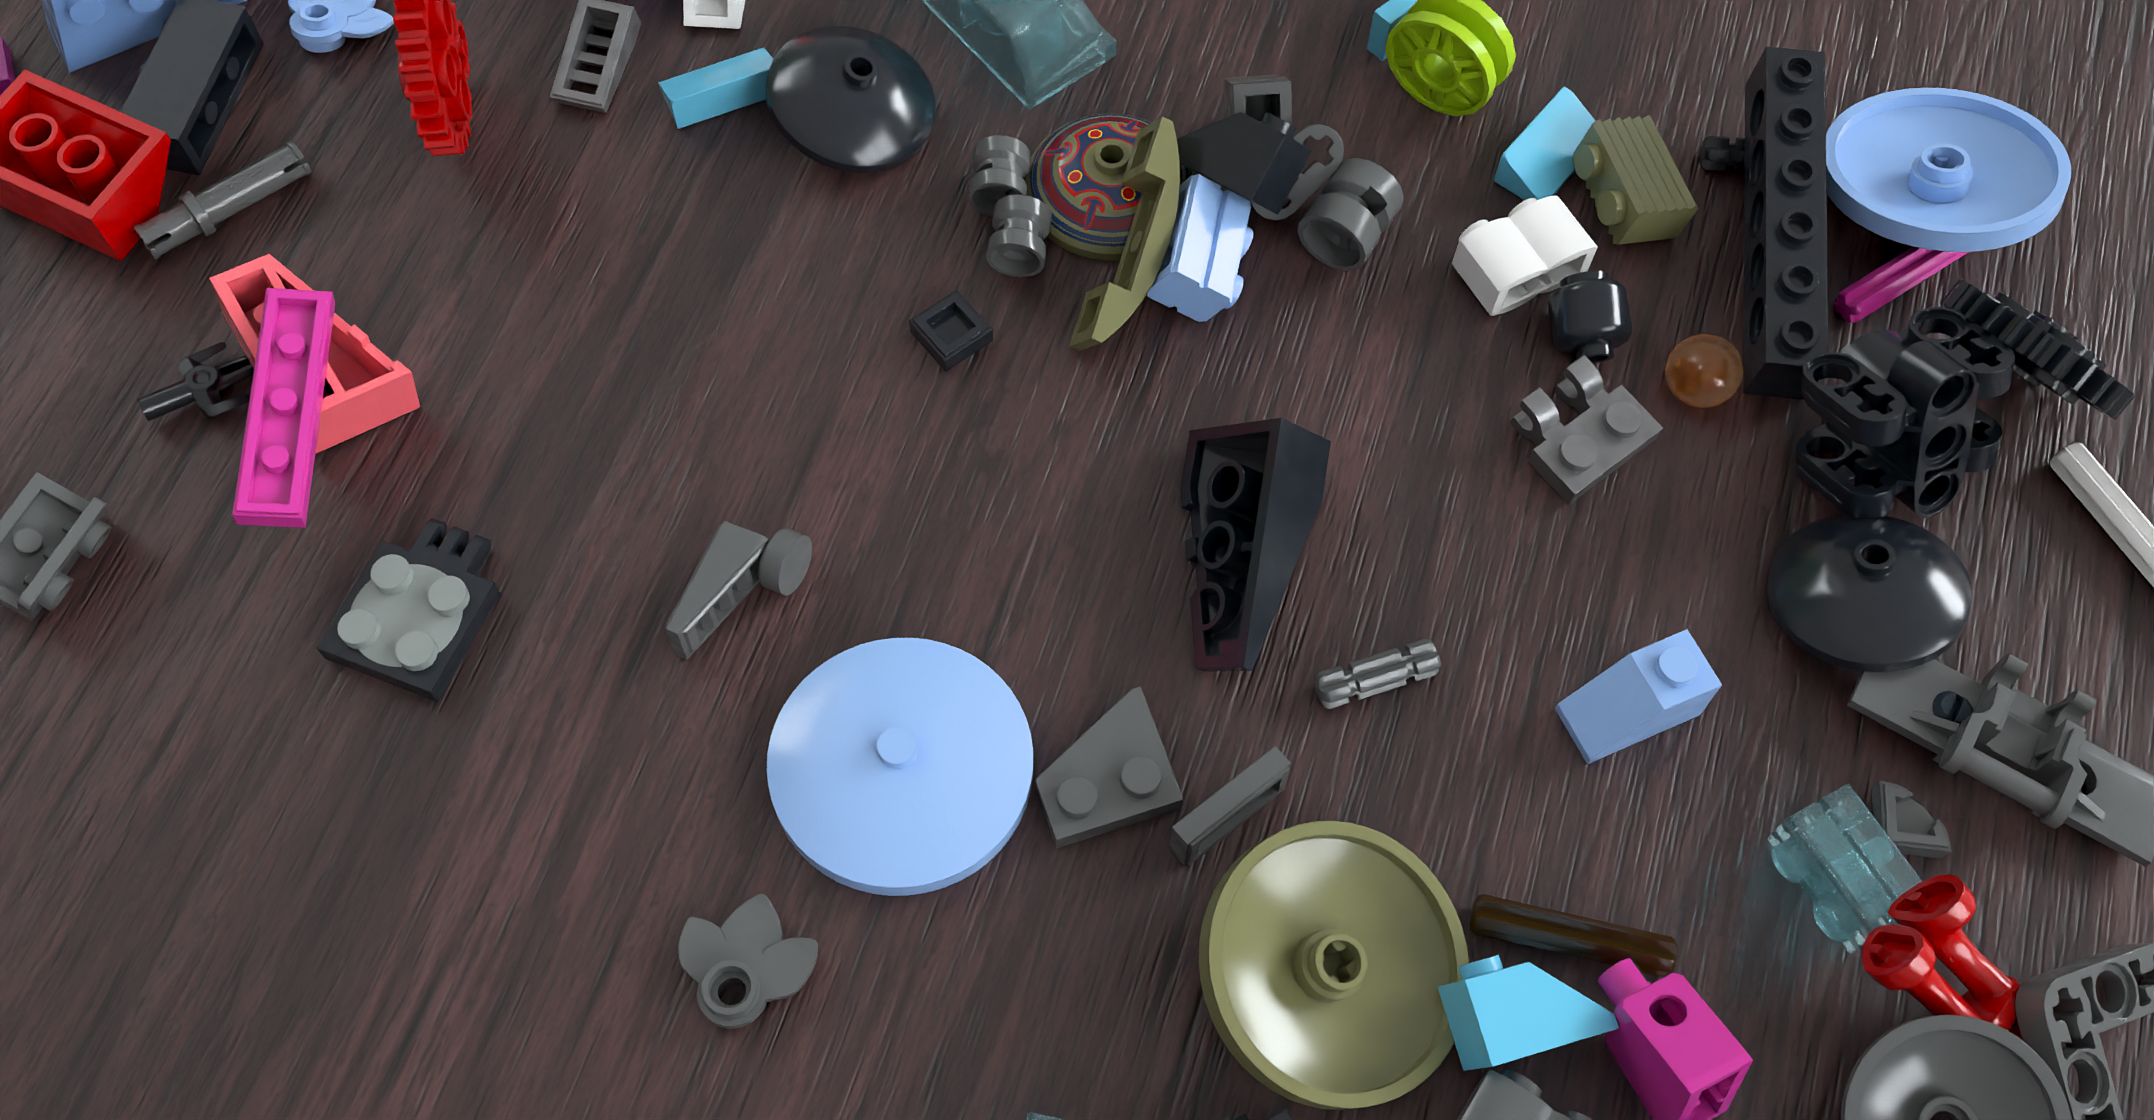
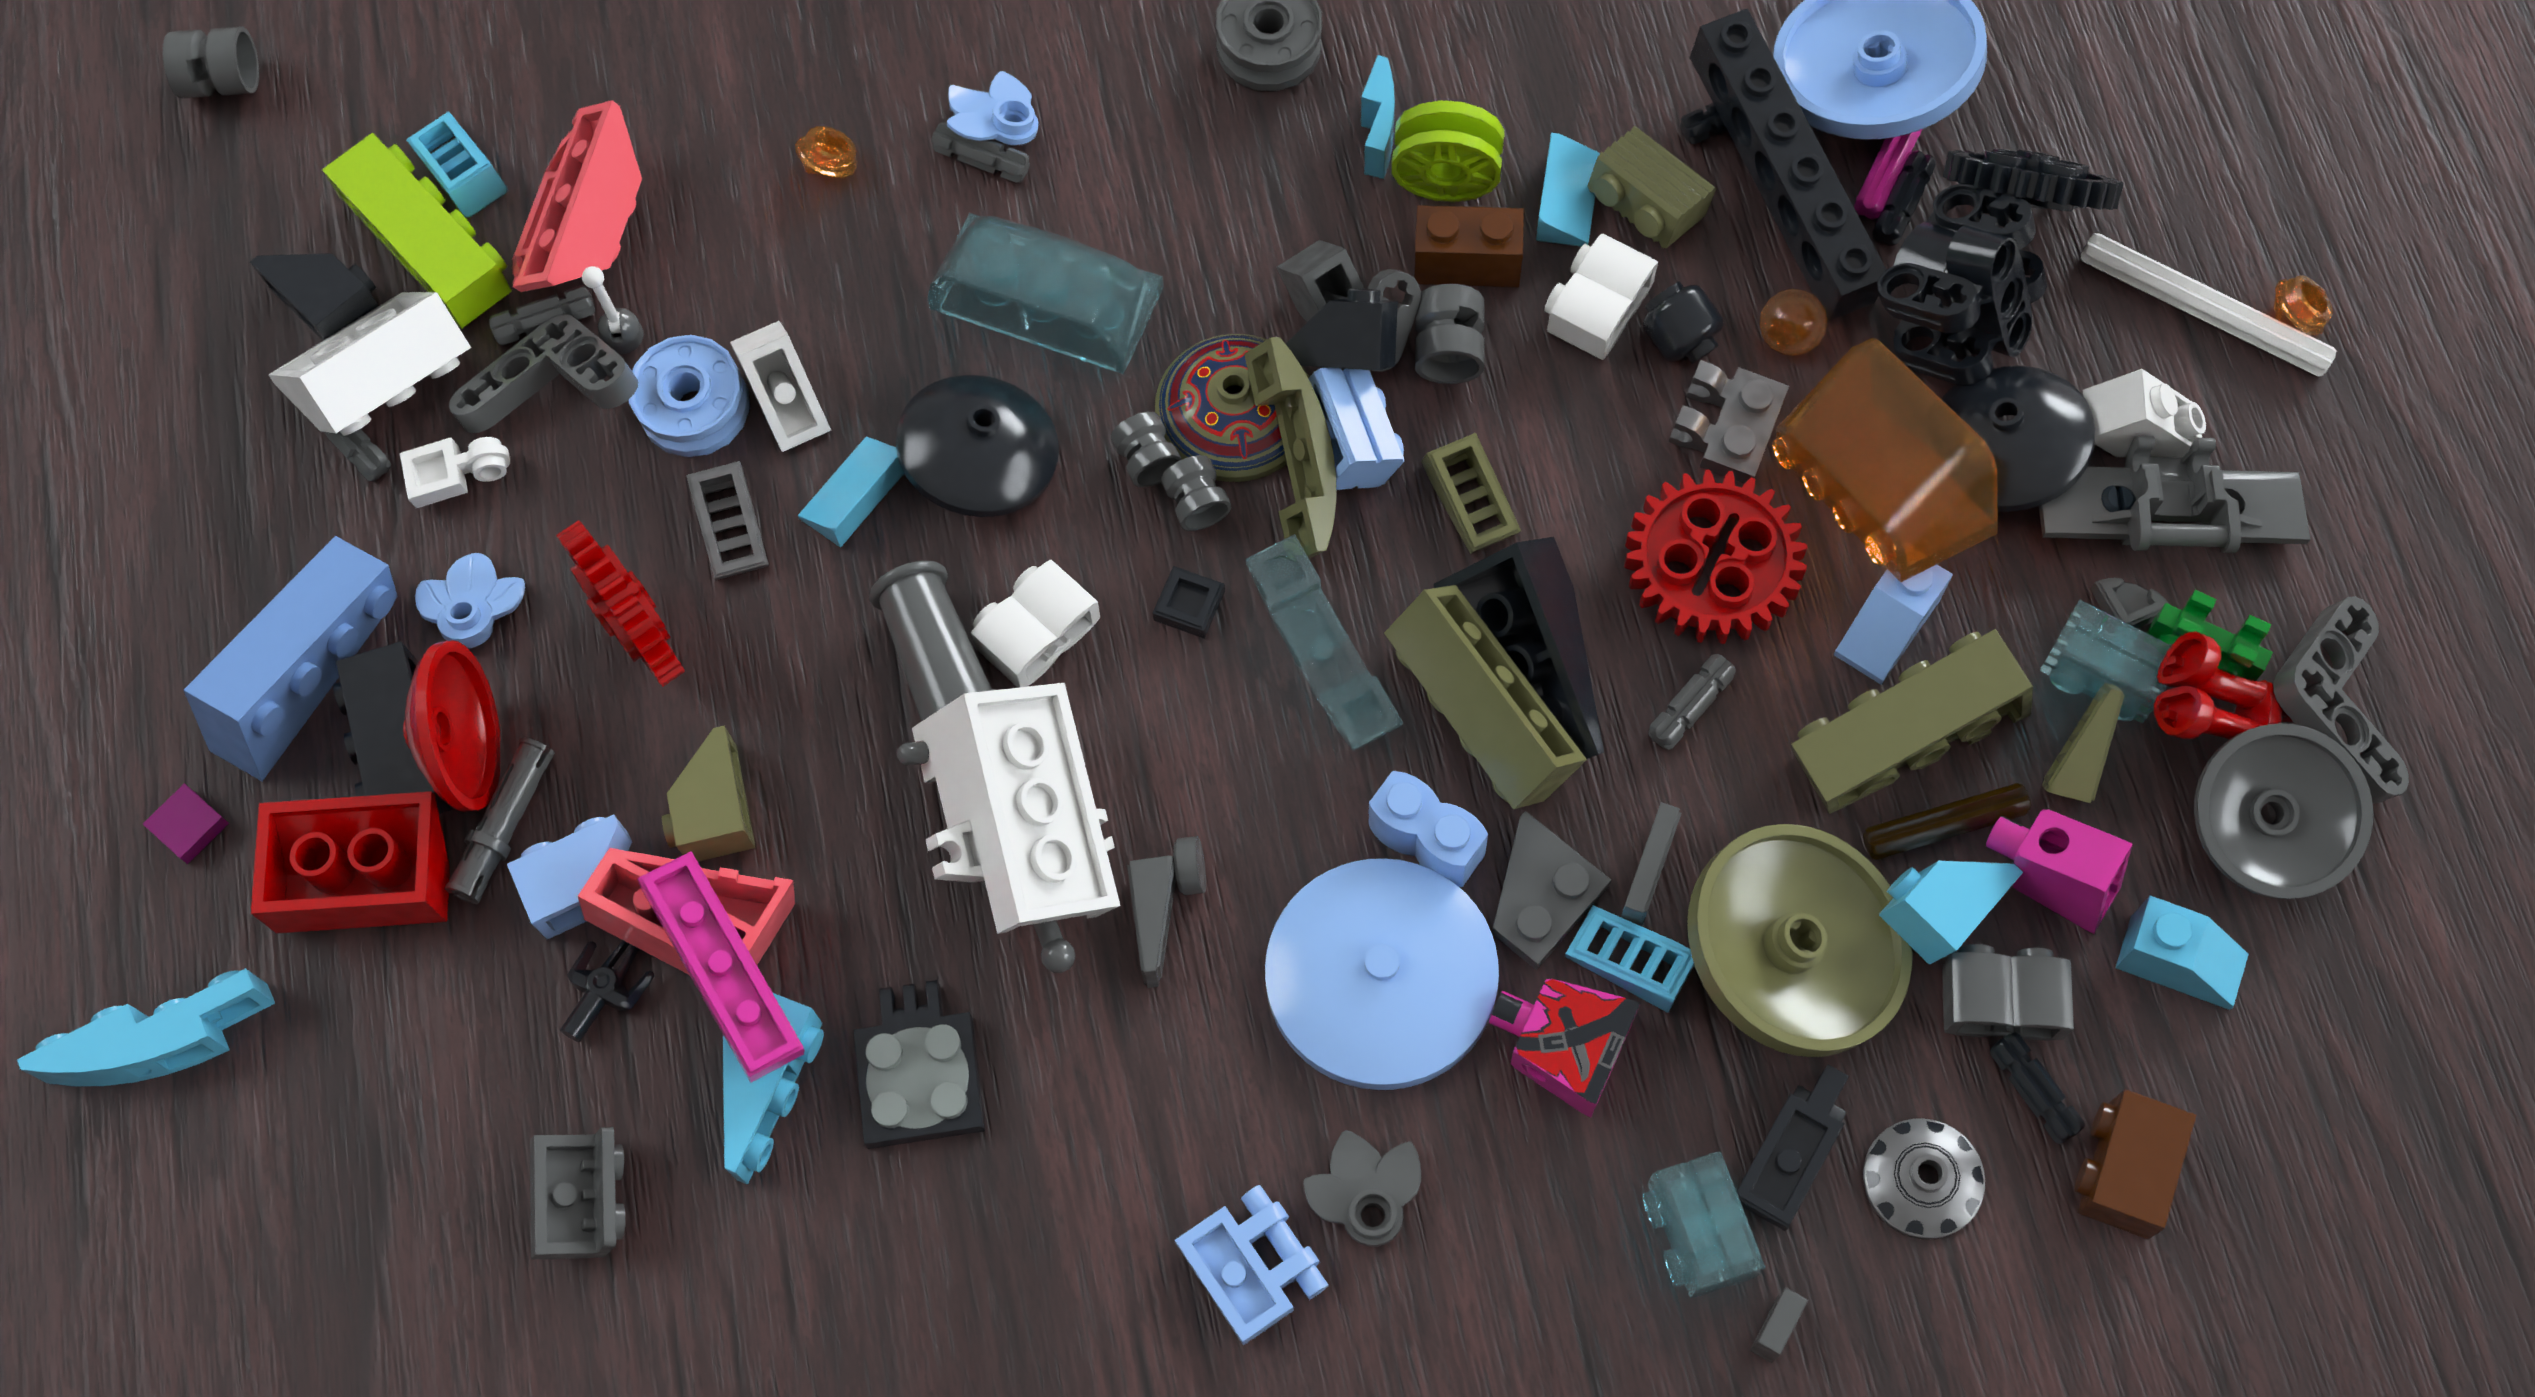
camera: 25 degrees left, 5 degrees up
(224, 249) = (555, 873): none -> light blue slope
(226, 89) = (454, 726): none -> red dish
(248, 558) = (755, 1107): none -> medium azure slope
(405, 275) = (710, 802): none -> olive slope
(561, 970) = (1236, 1275): none -> light blue plate
(657, 380) = (1003, 771): none -> white piece
(794, 274) = (1034, 623): none -> white brick
(1032, 650) = (1415, 823): none -> light blue brick
(1038, 929) = (1567, 1038): none -> torso
(1045, 427) = (1321, 645): none -> clear light blue slope
(1167, 556) = (1484, 696): none -> olive brick
(1180, 936) = (1642, 985): none -> medium azure slope
(1285, 324) = (1471, 450): none -> olive slope
(1421, 146) = (1469, 245): none -> reddish brown brick
(1522, 588) = (1761, 576): none -> red gear
(1595, 811) = (1914, 720): none -> olive wedge
(1720, 542) = (1891, 462): none -> clear orange windscreen
(1753, 951) = (2083, 756): none -> olive slope
(1896, 310) = (1904, 198): none -> black axle
(1992, 930) = (2239, 651): none -> green plate
(2034, 628) = (2143, 407): none -> white slope

